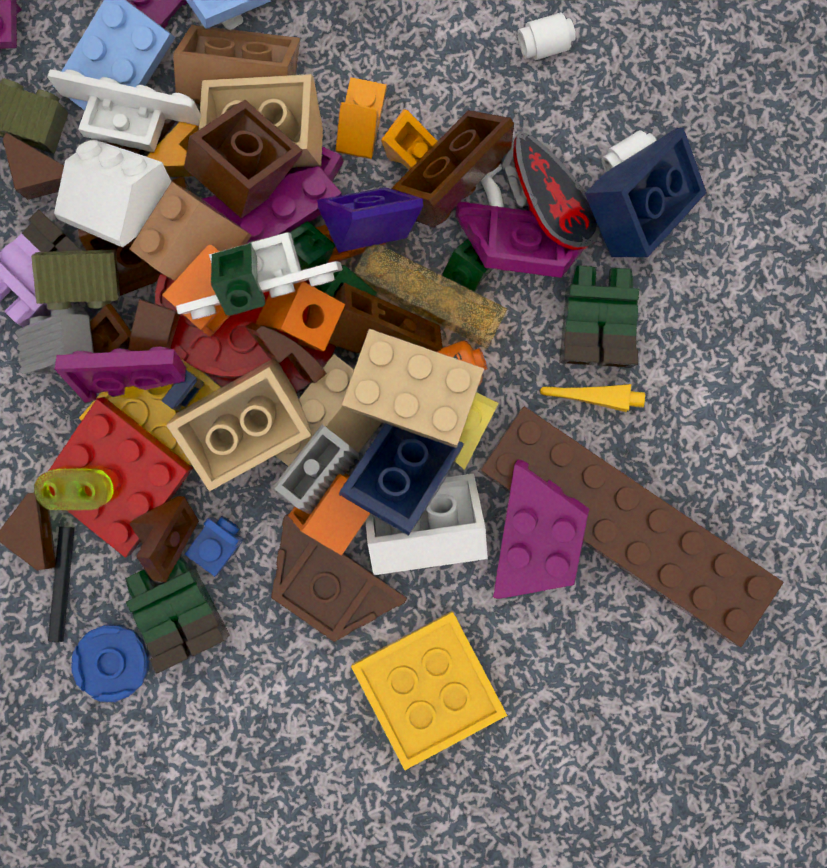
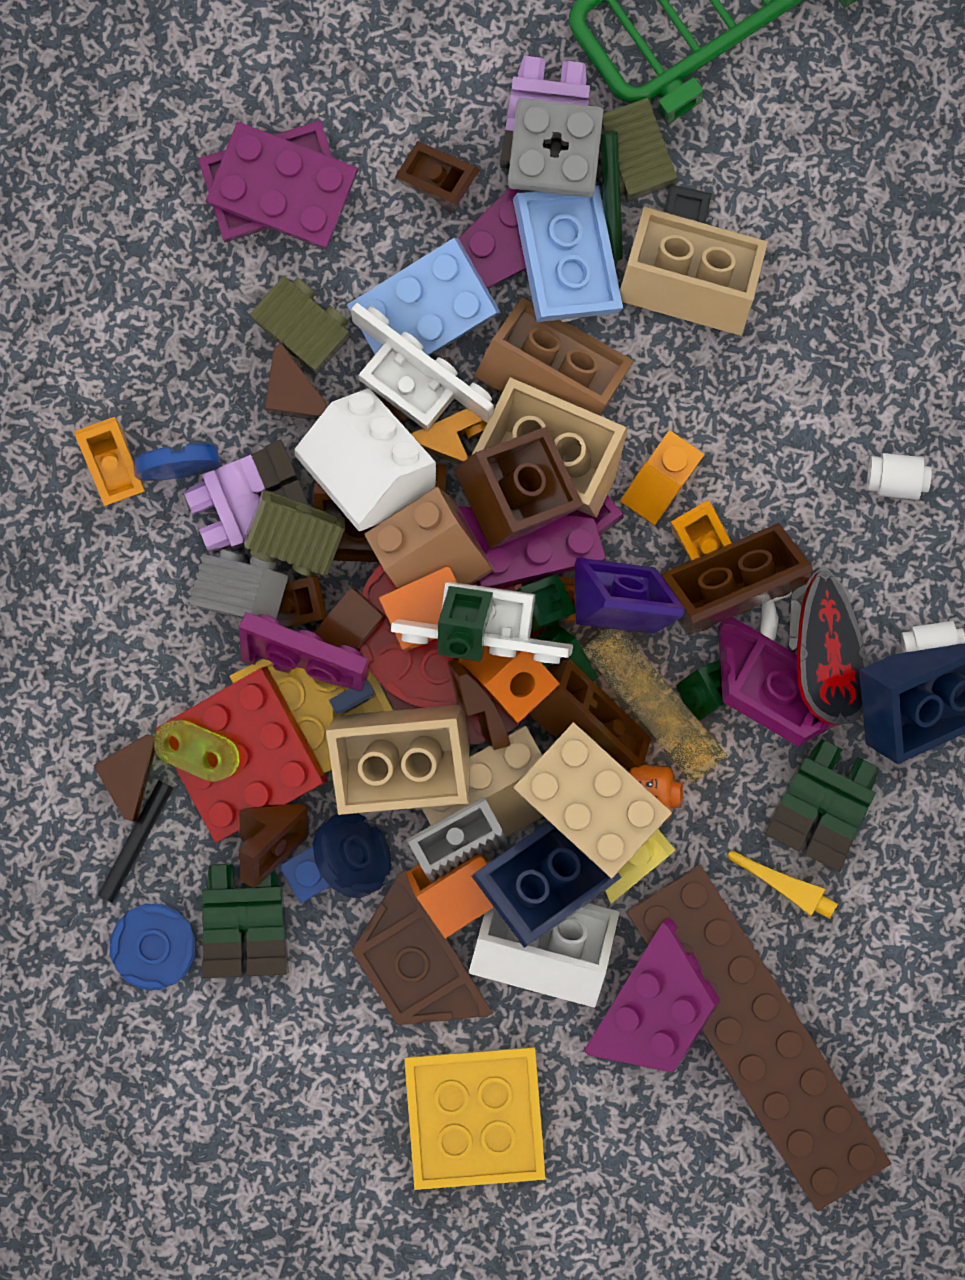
camera: 30 degrees right, 0 degrees up
(237, 520) = (351, 855): none -> dark blue tile

